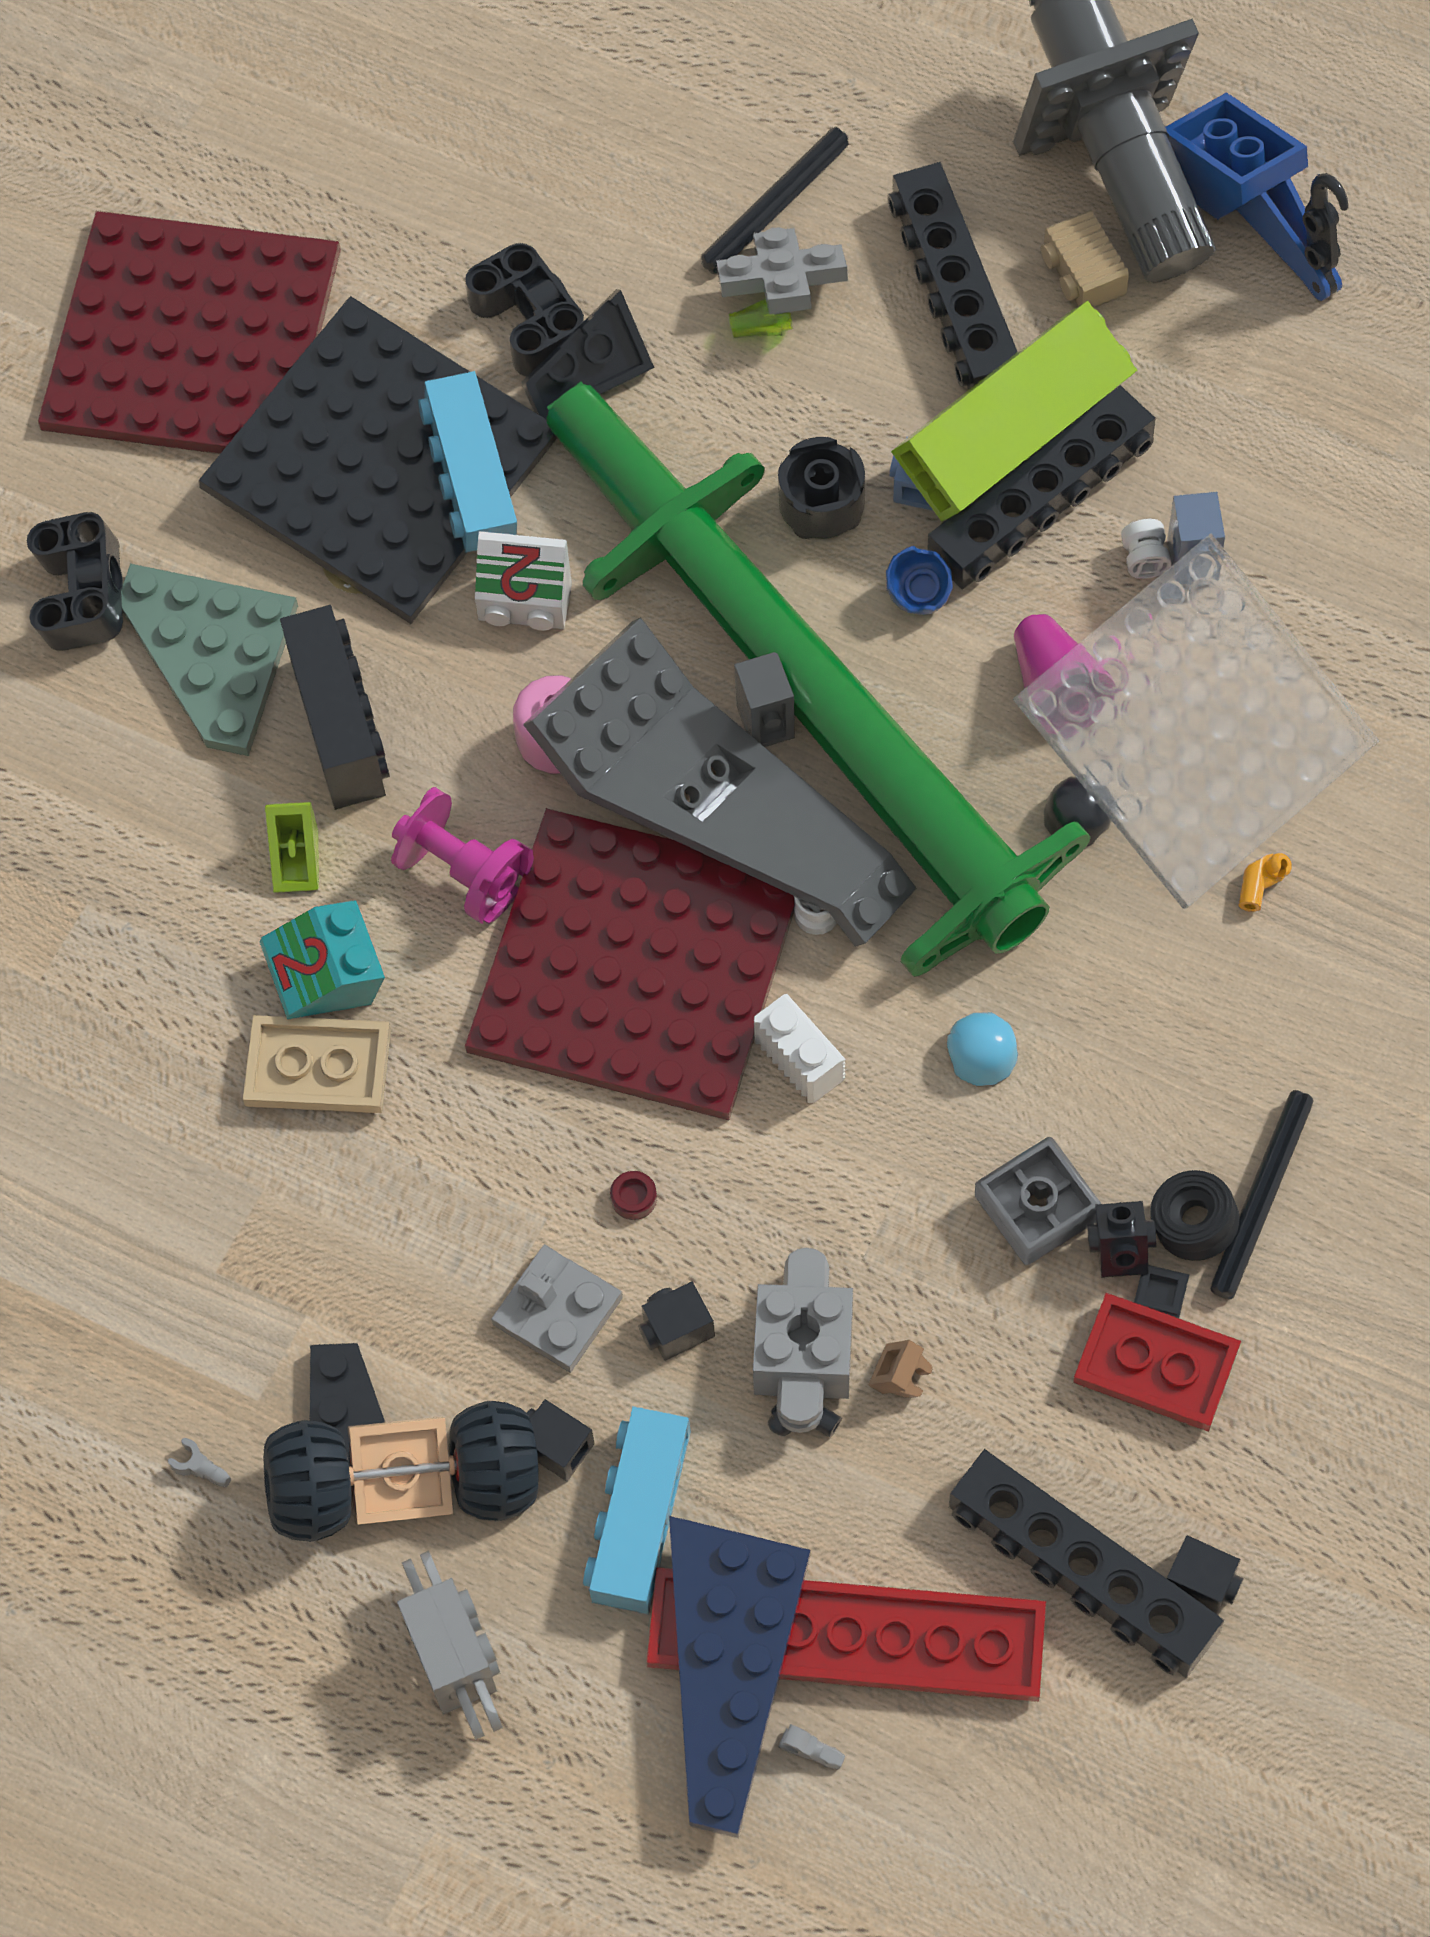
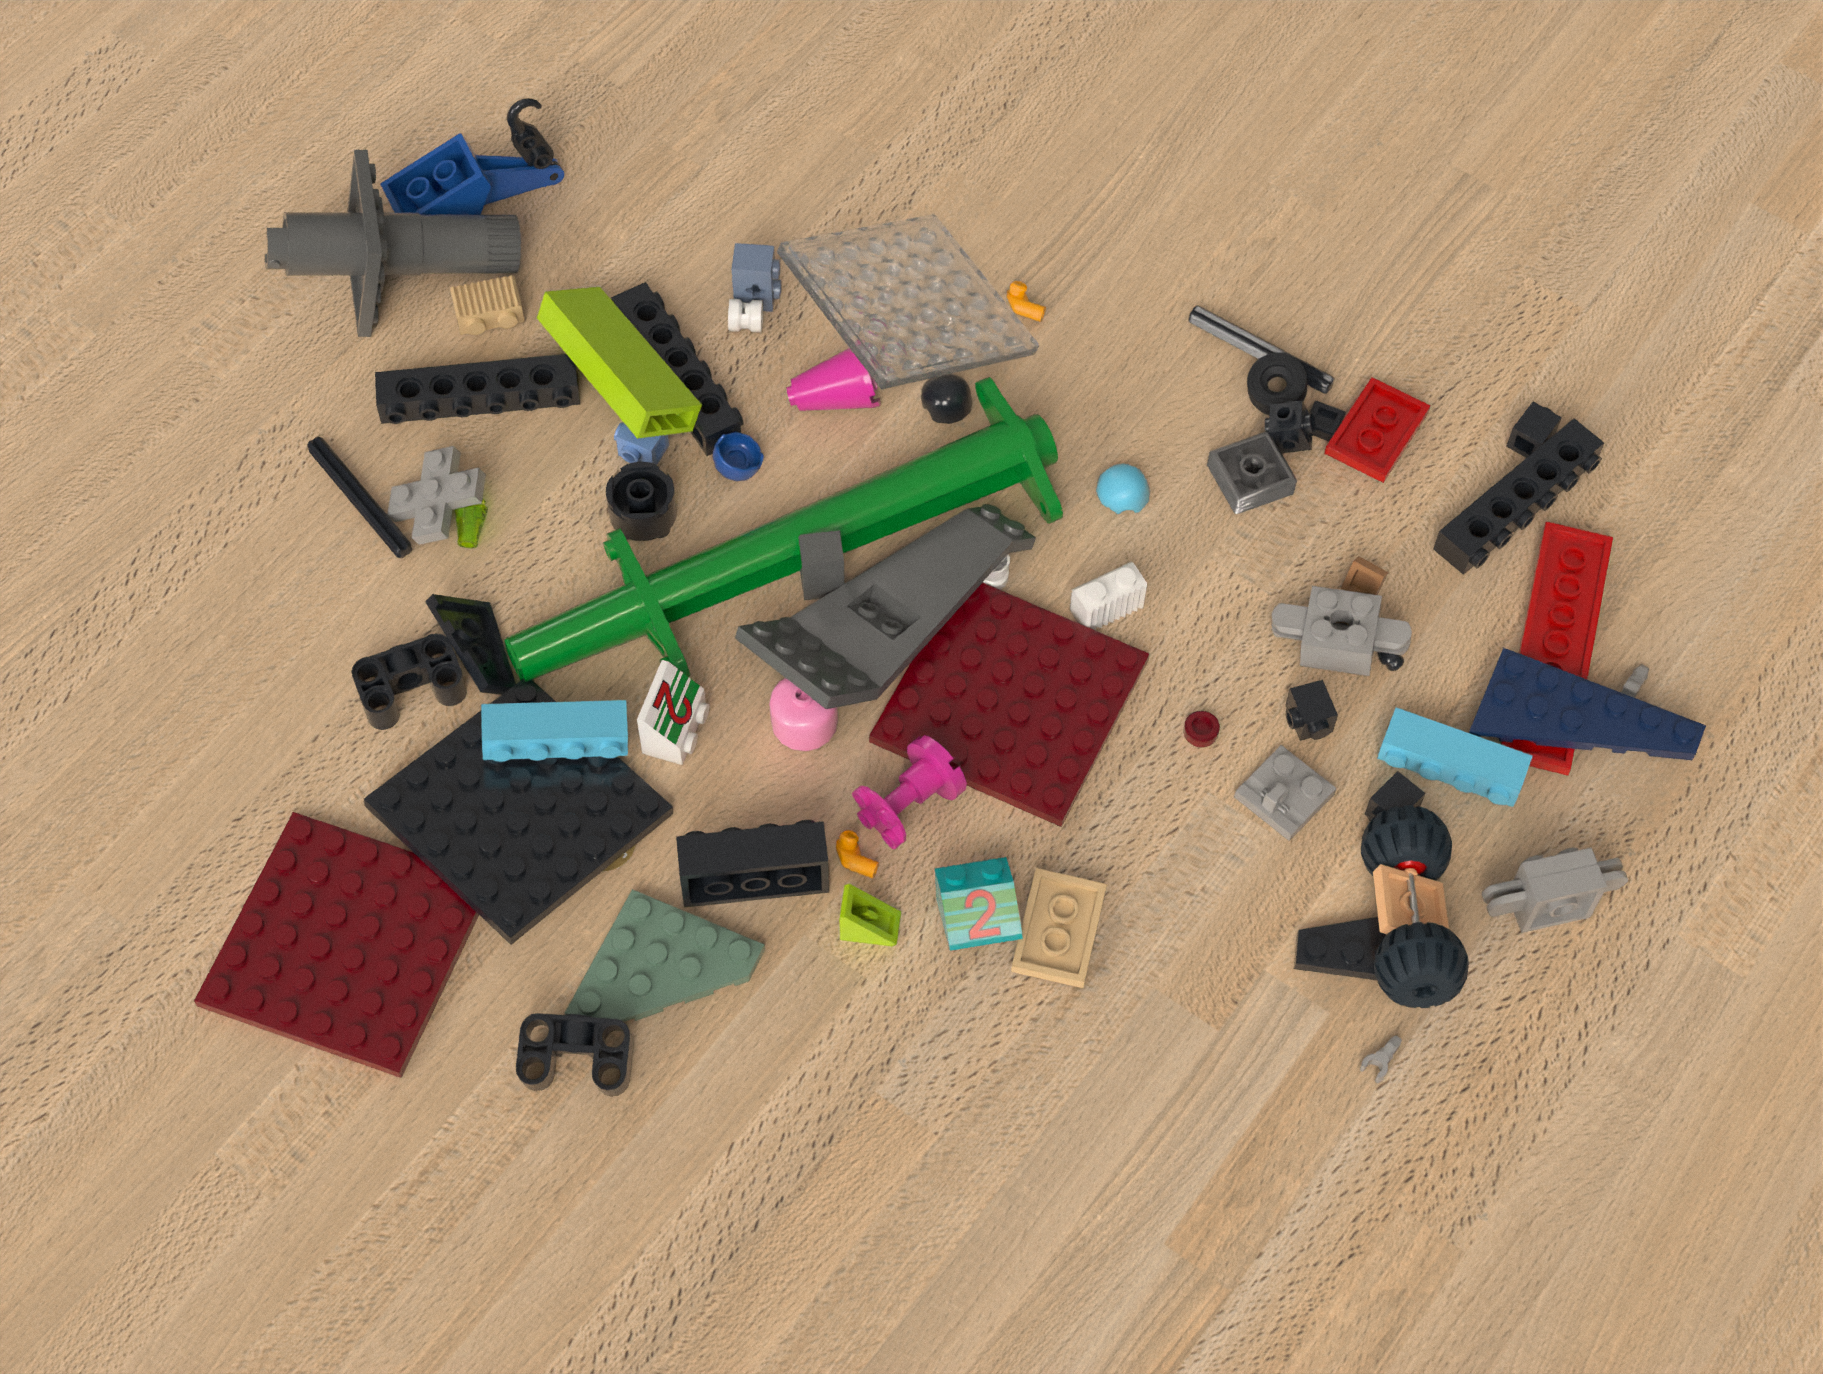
camera: 85 degrees left, 5 degrees down
(378, 822) = (851, 857): none -> light orange arm

